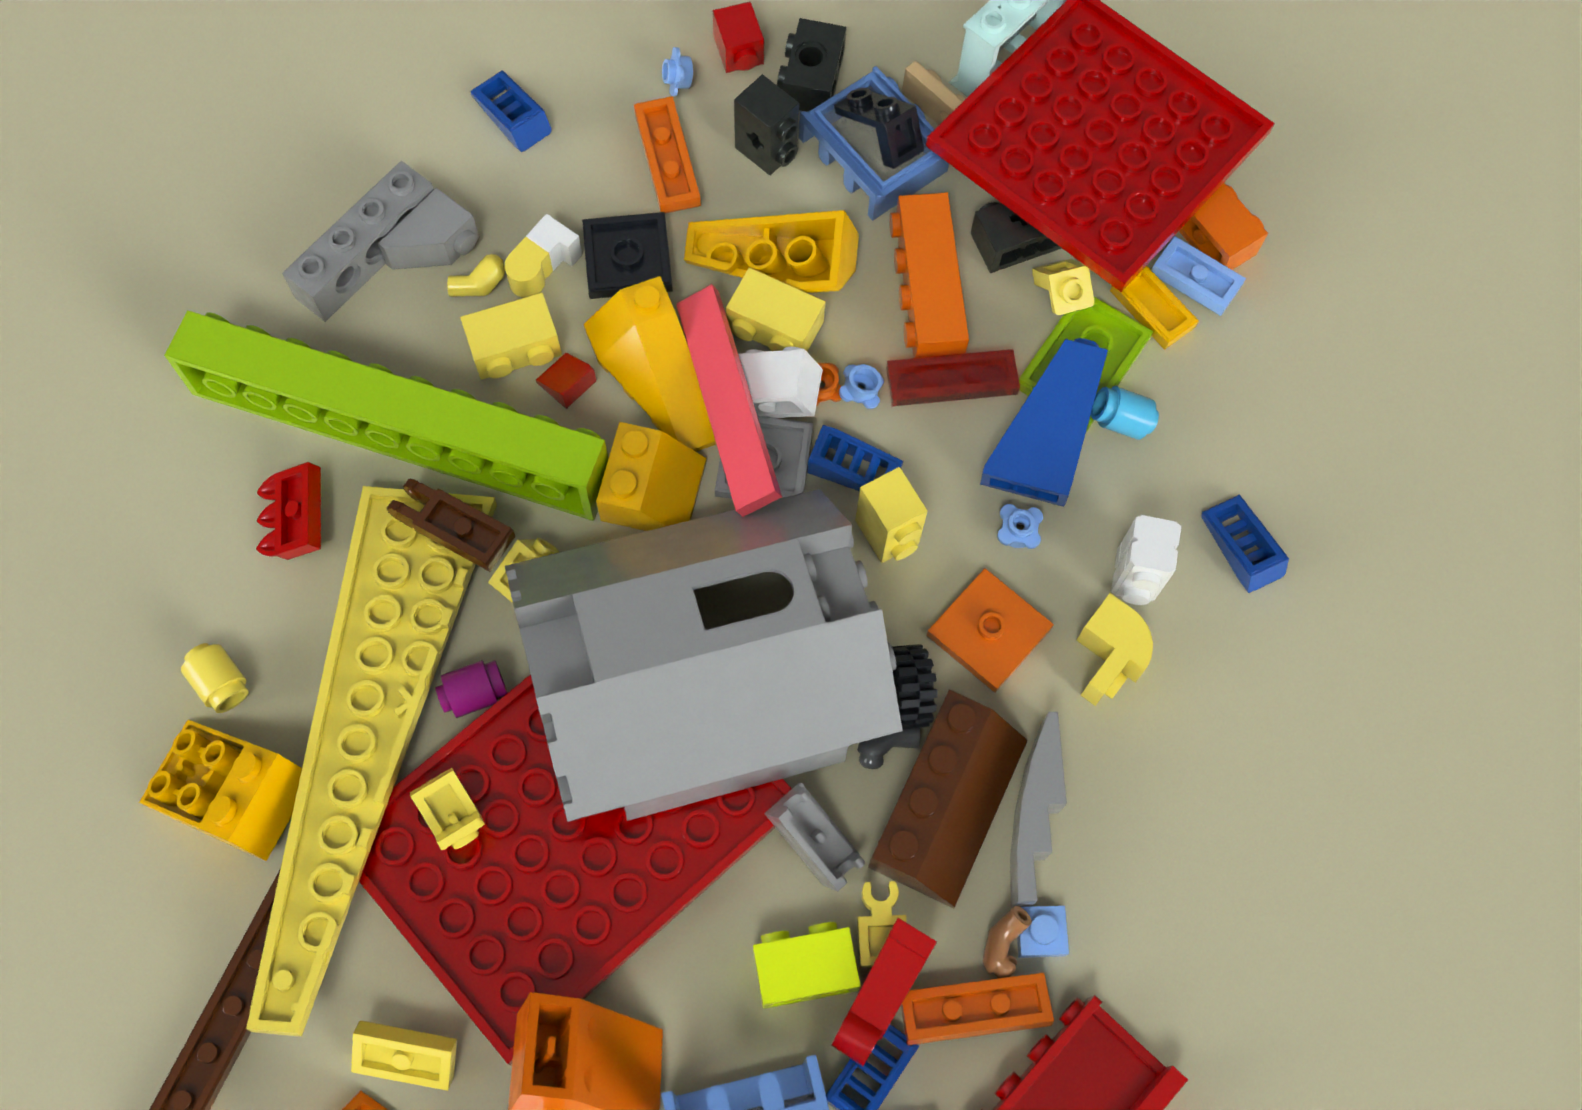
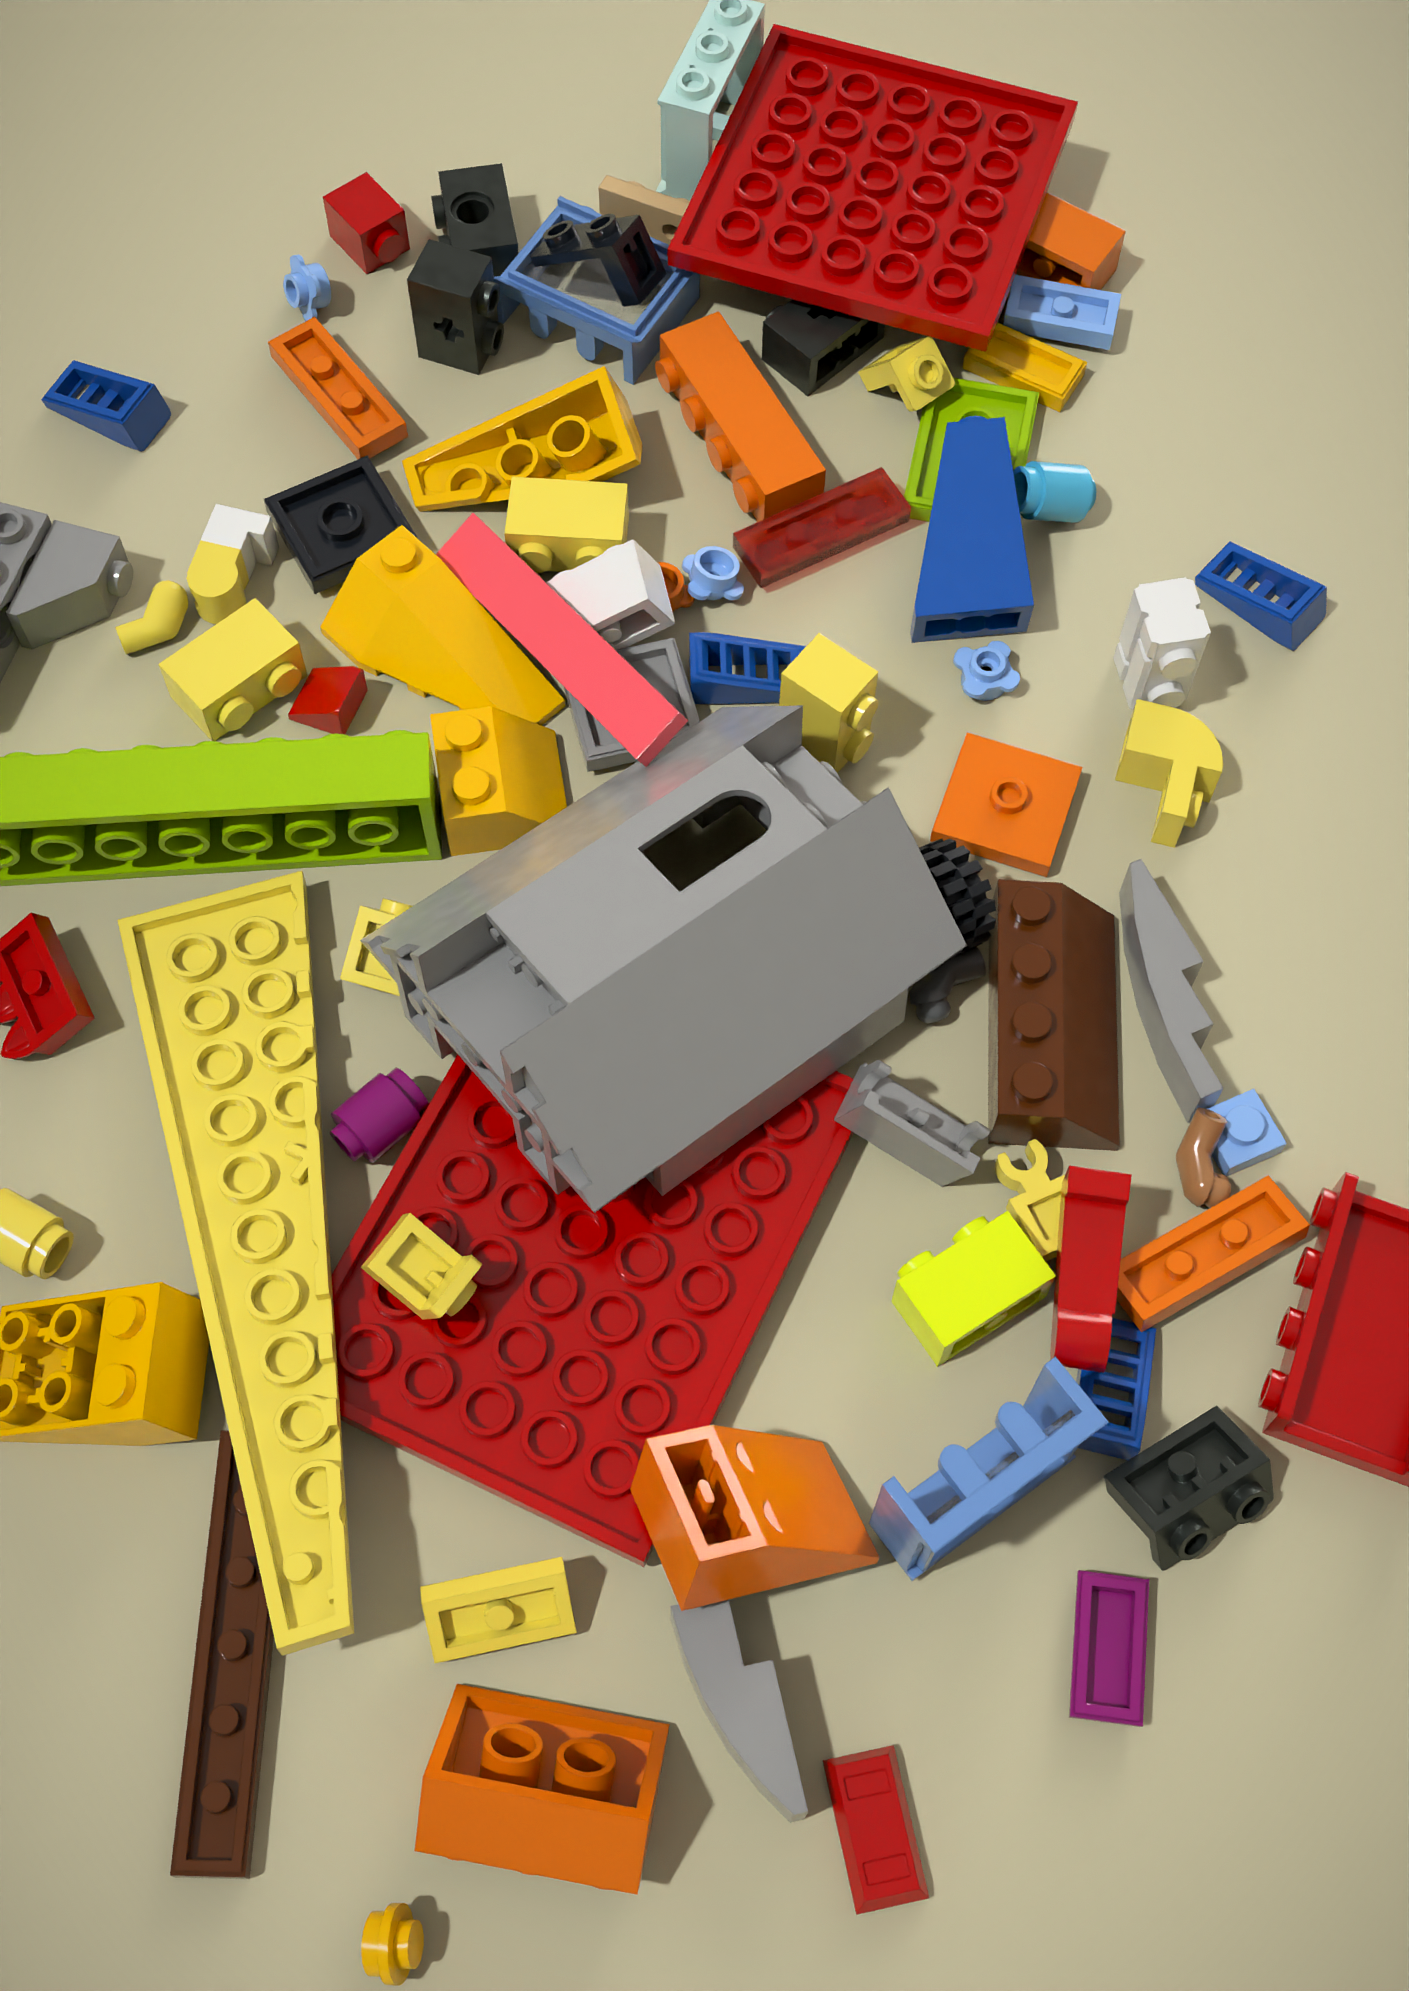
camera: 20 degrees left, 5 degrees down
(454, 525) = (263, 917): reddish brown hinge -> none

